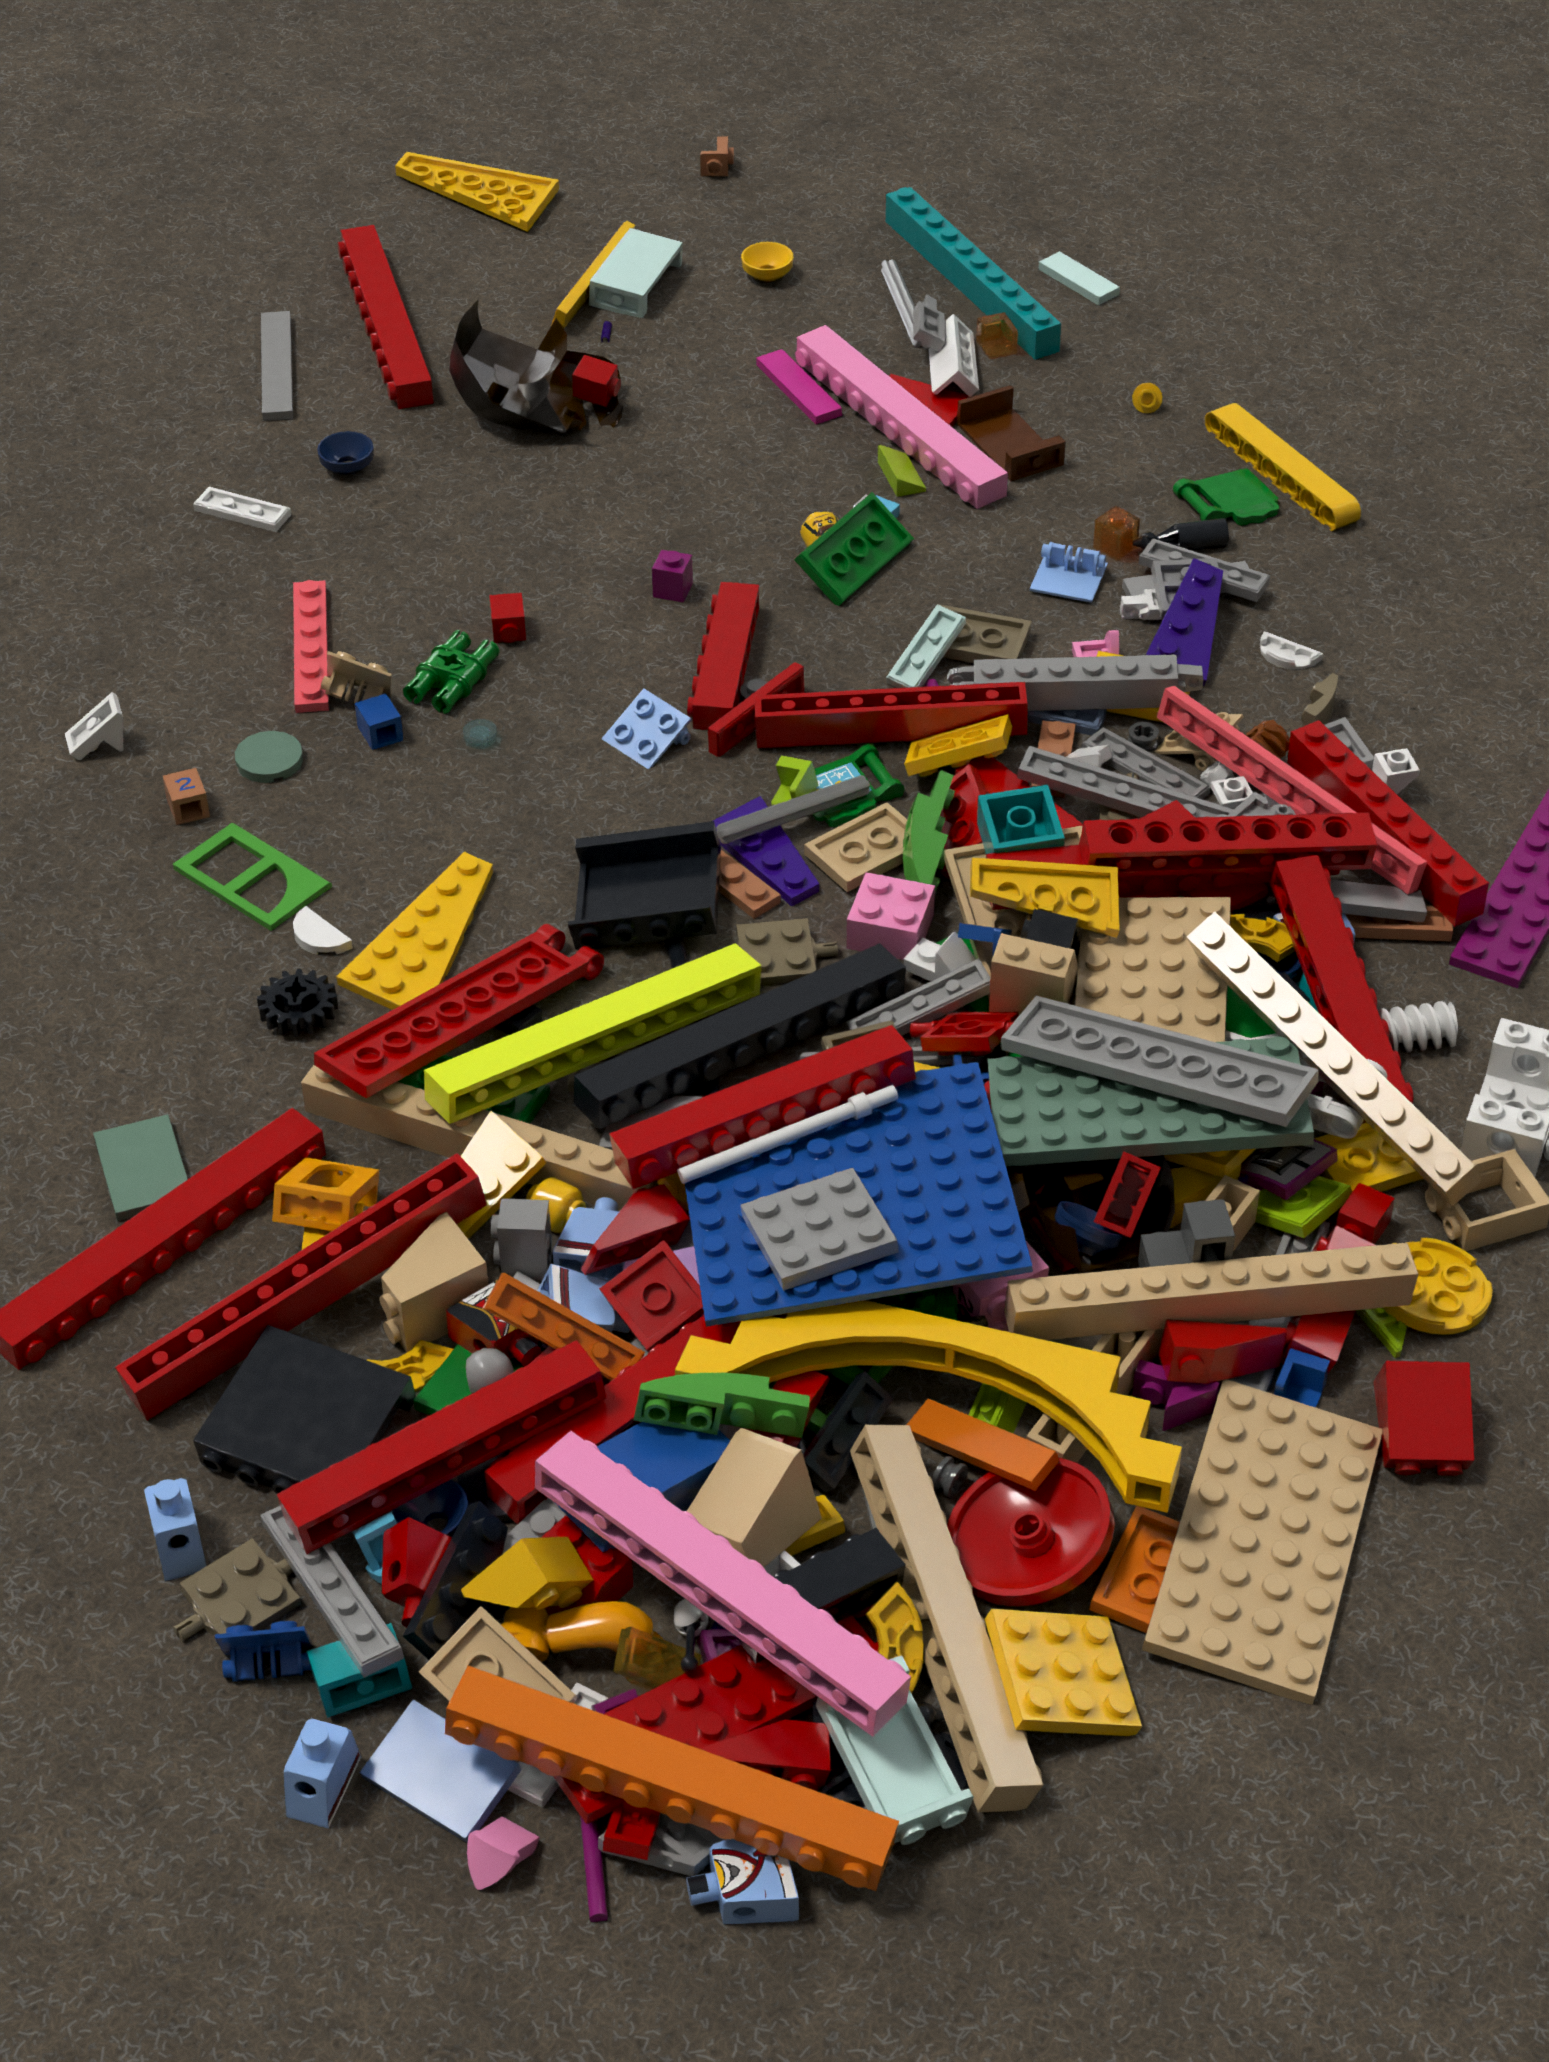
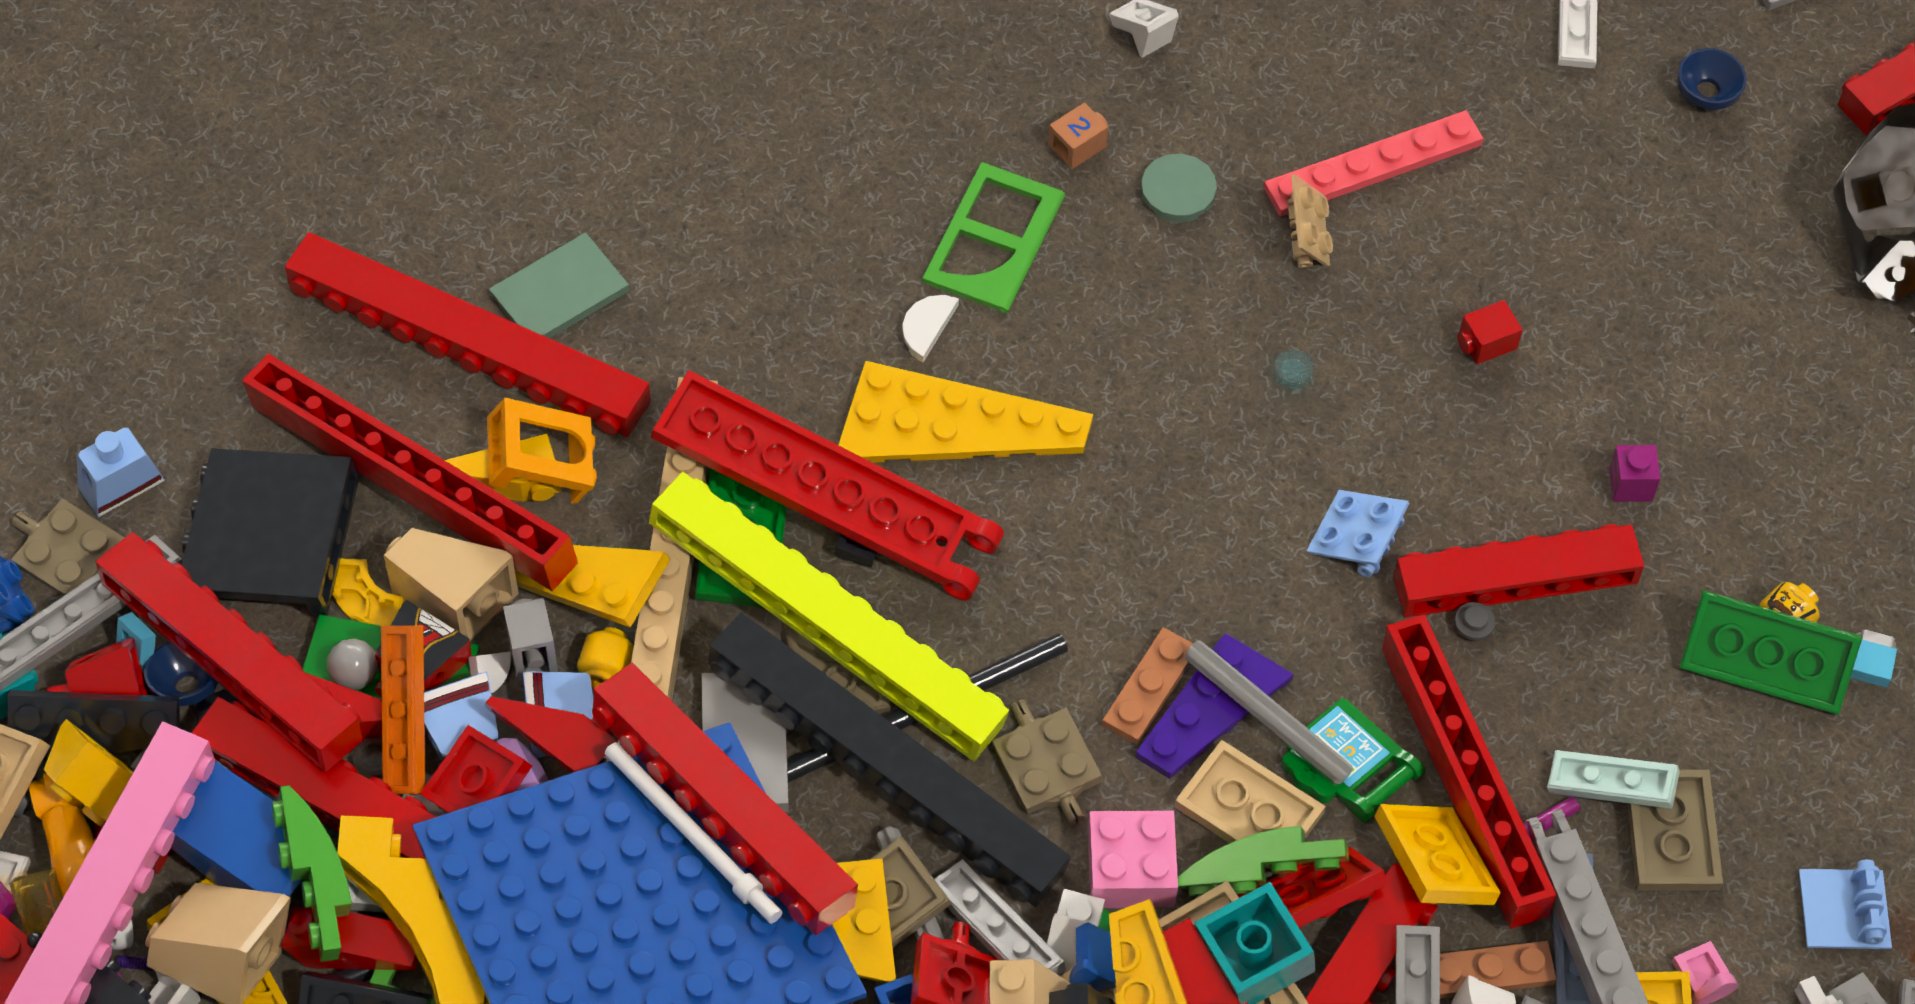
camera: 70 degrees right, 15 degrees up
(297, 1002) = (800, 350): black gear -> none
(379, 721) = (1264, 266): blue brick -> none
(451, 671) = (1366, 321): green pin -> none
(647, 886) = (1086, 606): black panel -> none
(741, 720) = (1450, 633): red tile -> none
(796, 779) = (1318, 707): lime panel -> none
(819, 1228) = (548, 893): light grey plate -> none

